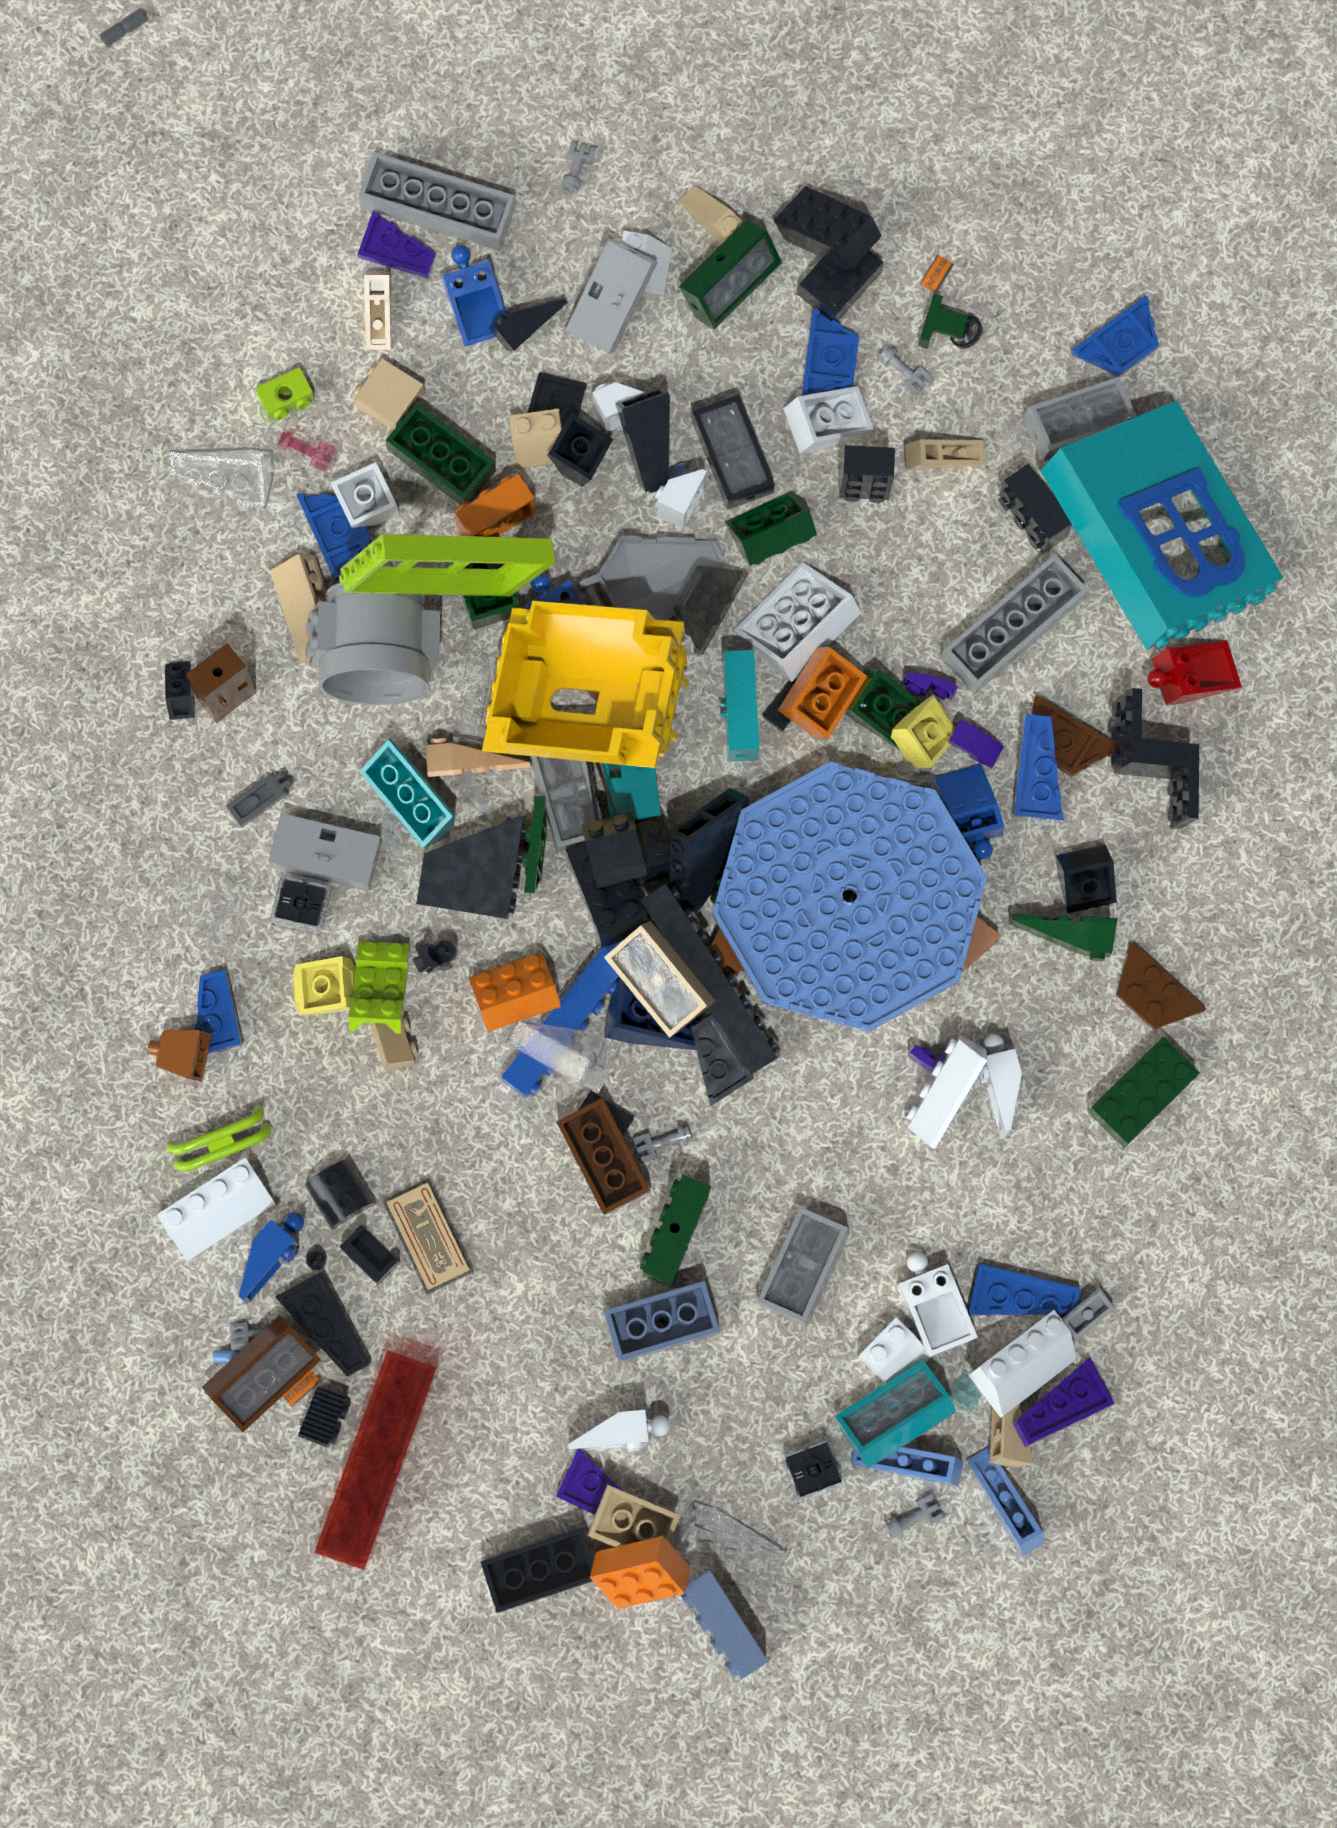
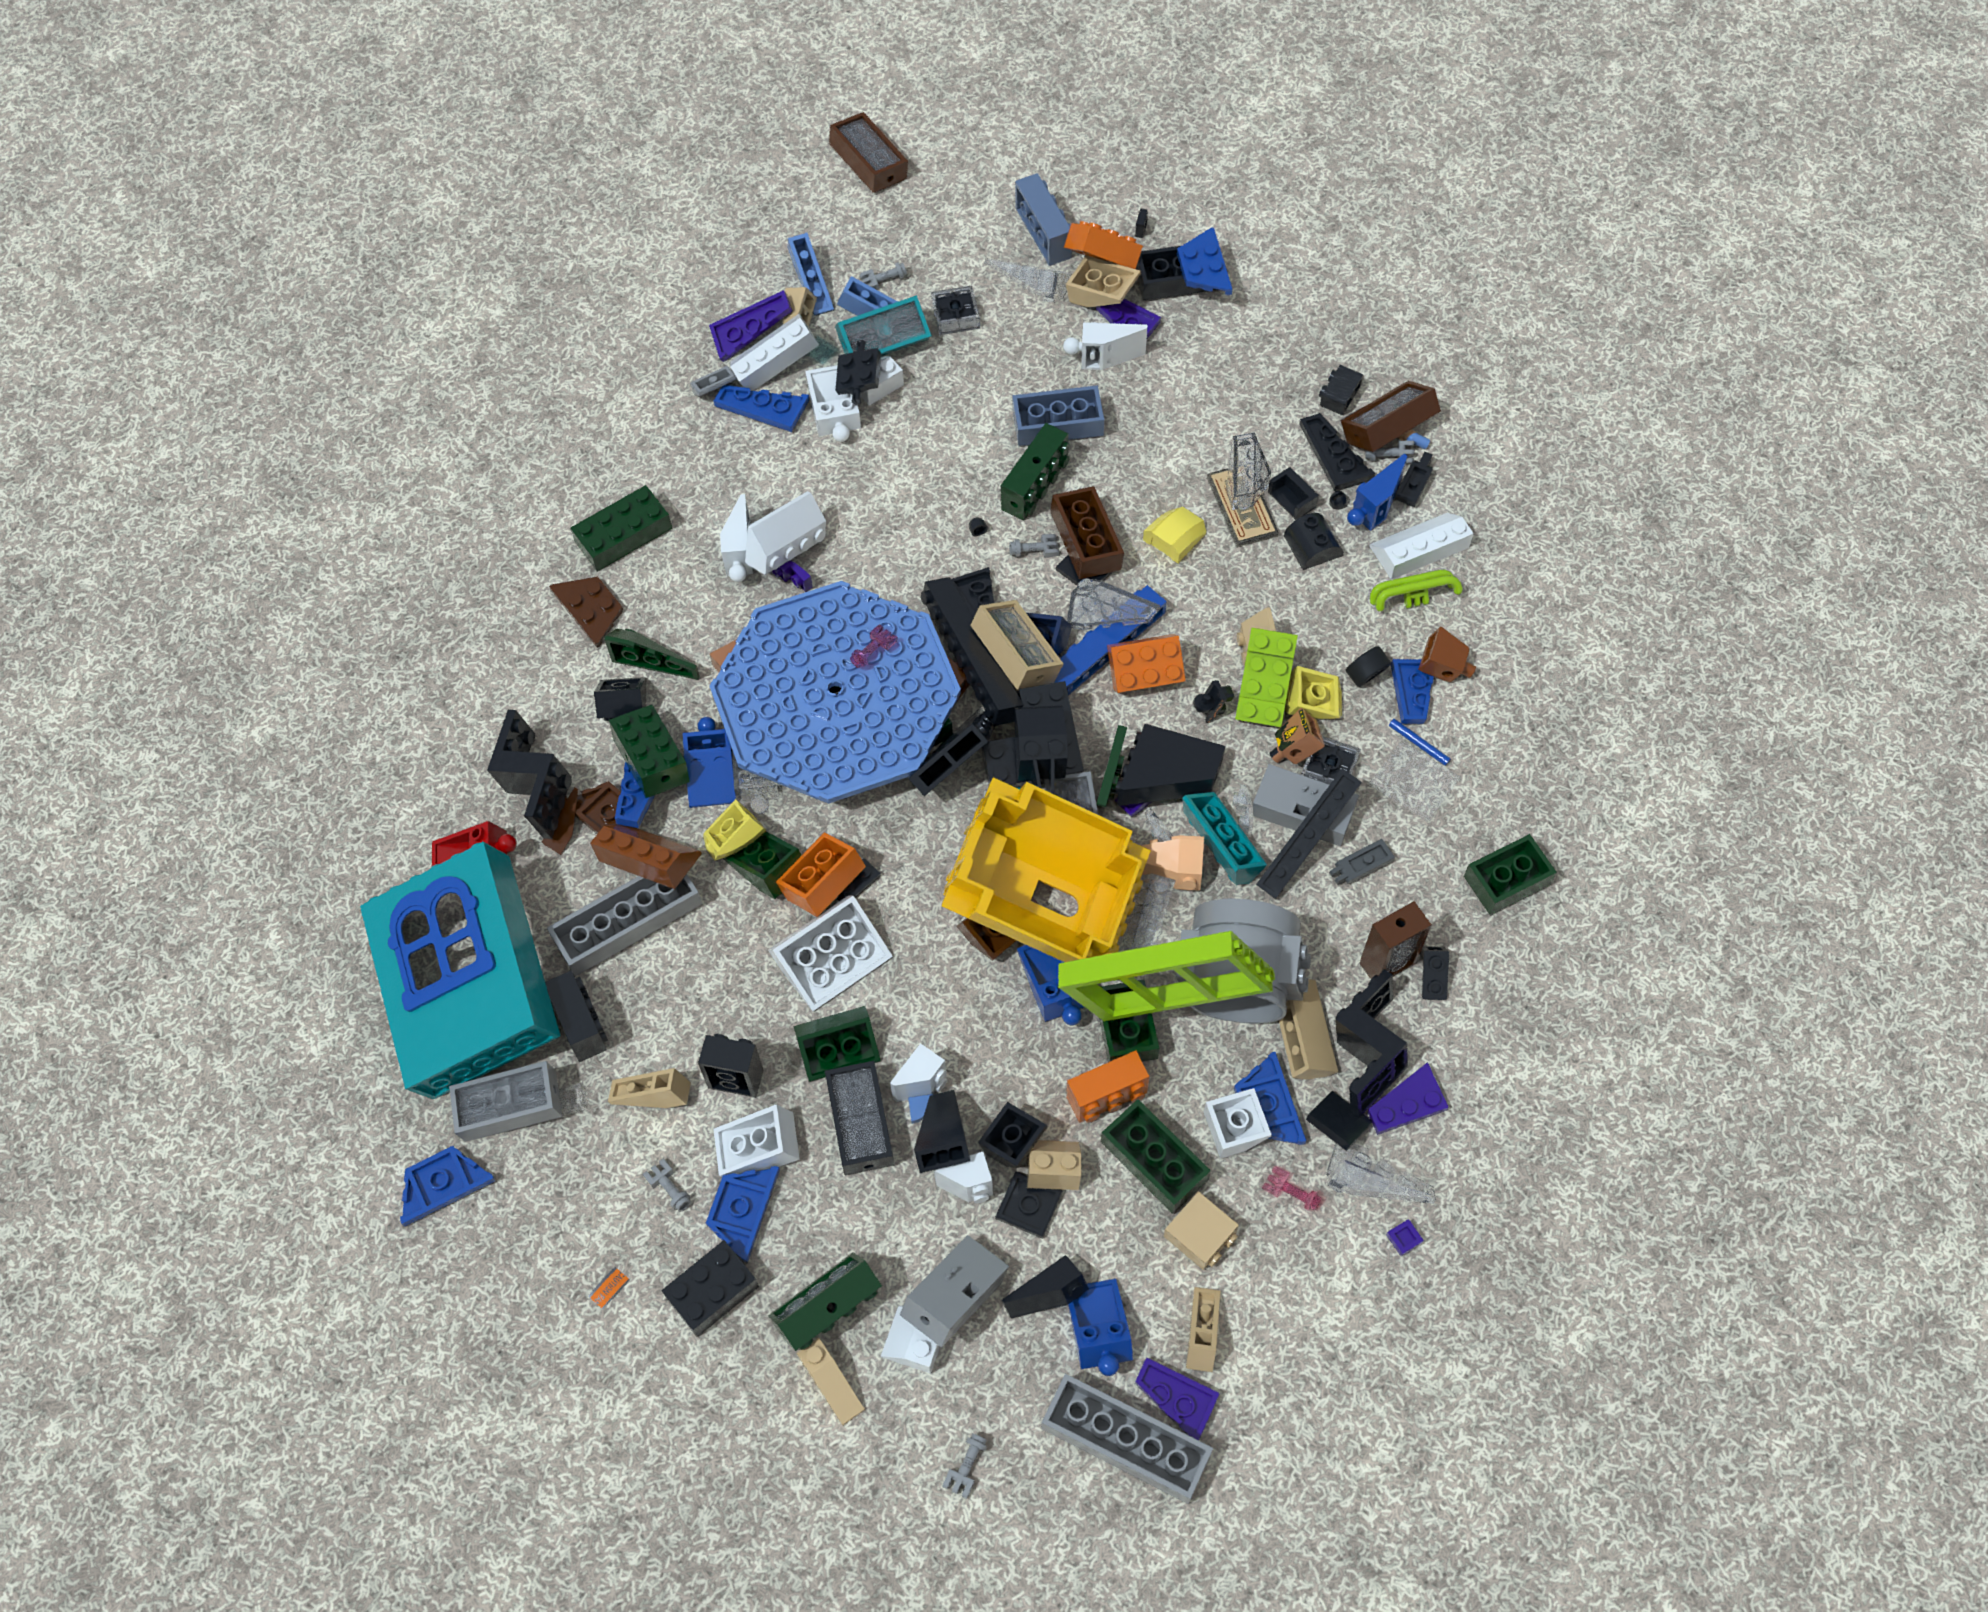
camera: 165 degrees left, 15 degrees down
(104, 799) = (1510, 874): none -> dark green brick
(195, 418) = (1404, 1237): none -> dark purple plate
(198, 550) = (1408, 1102): none -> dark purple wing
(205, 953) = (1419, 742): none -> blue bar
(225, 1298) = (1415, 481): none -> black hinge
(239, 588) = (1371, 1043): none -> black bracket
(265, 517) = (1337, 1122): none -> black tile
(267, 1030) = (1368, 666): none -> black tyre
(291, 382) = (1299, 1259): lime brick -> none
(317, 806) = (1309, 833): none -> black plate
(337, 924) = (1297, 738): none -> nougat torso
(376, 1460) = (1300, 353): clear red brick -> none
(424, 1245) = (1247, 472): none -> clear wedge
(501, 1185) = (1175, 532): none -> light yellow slope
(509, 1566) = (1204, 264): none -> blue wing
(598, 1649) = (1141, 223): none -> black tile
(650, 573) = (962, 1007): light grey windscreen -> none
(707, 602) = (911, 979): clear smoke wing -> none
(733, 1160) = (977, 526): none -> black hinge
(740, 706) = (899, 874): teal brick -> none
(803, 1267) = (934, 439): clear brick -> none
(827, 228) = (711, 1330): black brick -> none
(828, 926) = (879, 638): none -> clear pink hinge
(911, 1335) = (858, 371): none -> black plate
(920, 683) = (721, 878): dark purple slope -> none
(949, 324) = (613, 1221): dark green piece -> none
(973, 1715) = (868, 152): none -> reddish brown brick
(976, 743) = (690, 818): dark purple slope -> none
(1006, 680) = (644, 854): none -> dark orange slope
(1036, 805) = (649, 751): none -> dark green brick
(1105, 722) = (565, 825): none -> reddish brown sticker

